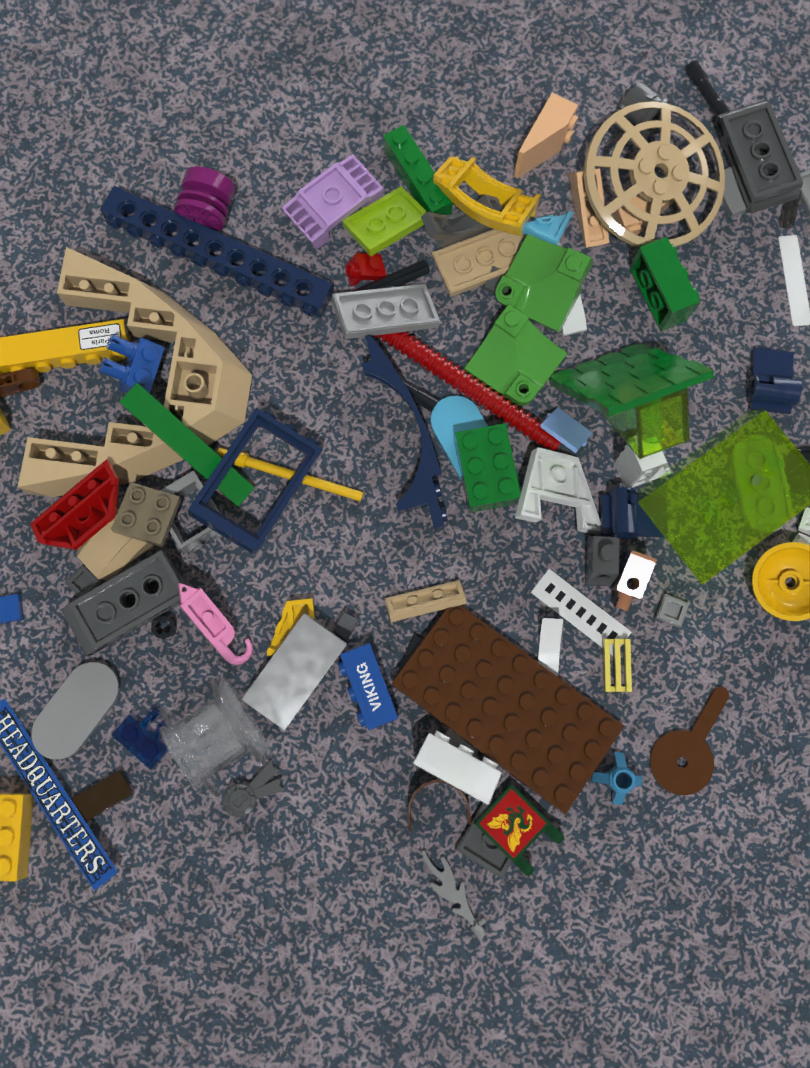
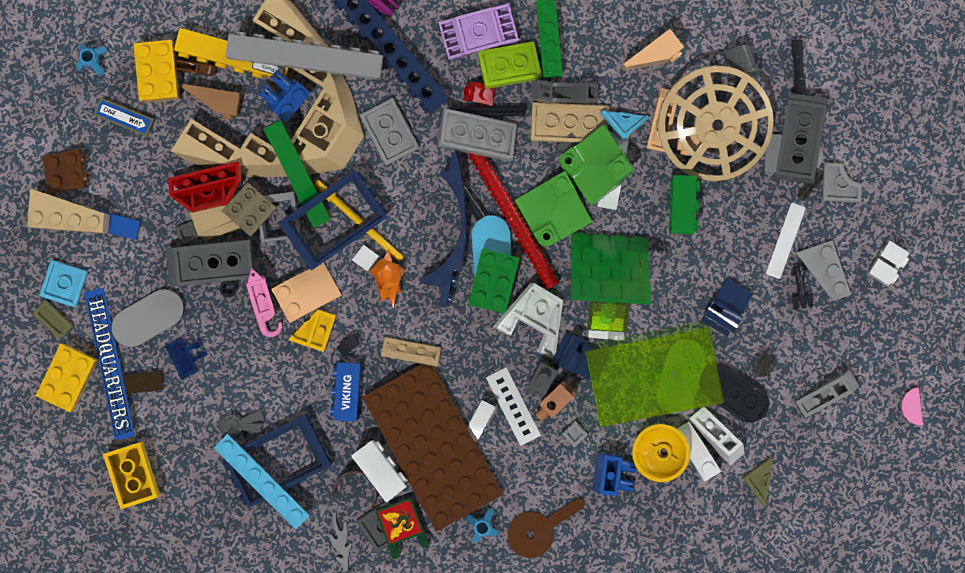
camera: 30 degrees right, 10 degrees up
(57, 407) = (223, 102): none -> medium nougat slope
(134, 928) = (131, 475): none -> yellow brick
(135, 303) = (303, 56): none -> light grey brick
(214, 736) = (233, 379): clear wheel -> none
(262, 587) = (306, 292): none -> light nougat slope
(278, 866) = (313, 442): none -> dark blue door
(280, 357) = (389, 131): none -> light grey tile
(294, 671) = (302, 359): light grey tile -> none
(311, 854) = (261, 481): none -> medium azure plate
(317, 514) = (365, 258): none -> white tile
(355, 524) = (387, 278): none -> orange hair
(517, 207) = (608, 101): yellow wedge -> none
(566, 429) = (560, 276): light blue piece -> none
(617, 665) = (512, 467): light yellow tile -> none
(741, 638) = (608, 472): none -> blue brick

